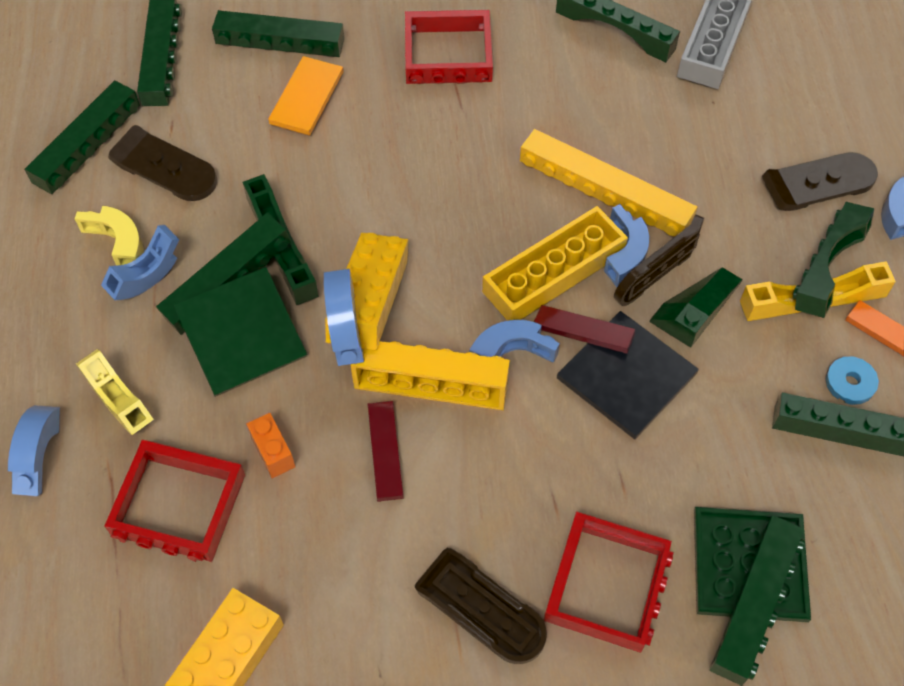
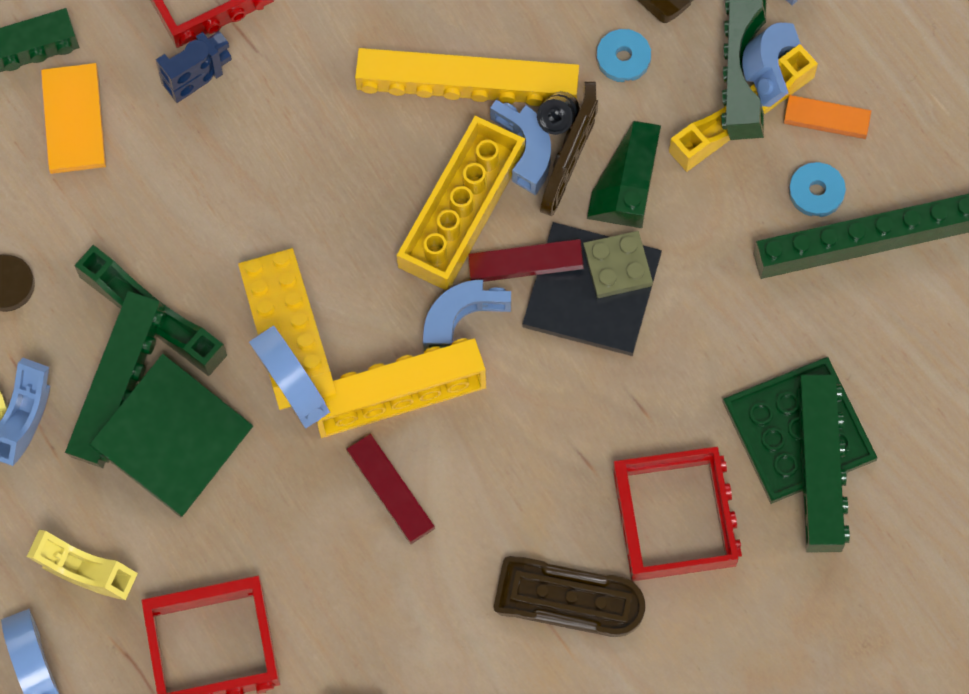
camera: 25 degrees left, 10 degrees up
(271, 445) = (274, 540): orange brick -> none
(409, 93) = (194, 65): none -> dark blue hips
(657, 363) = (617, 264): none -> olive plate
(661, 229) = (558, 113): none -> black wheel
(741, 208) = (627, 41): none -> dark azure tile
(848, 263) = (762, 64): none -> medium blue arch

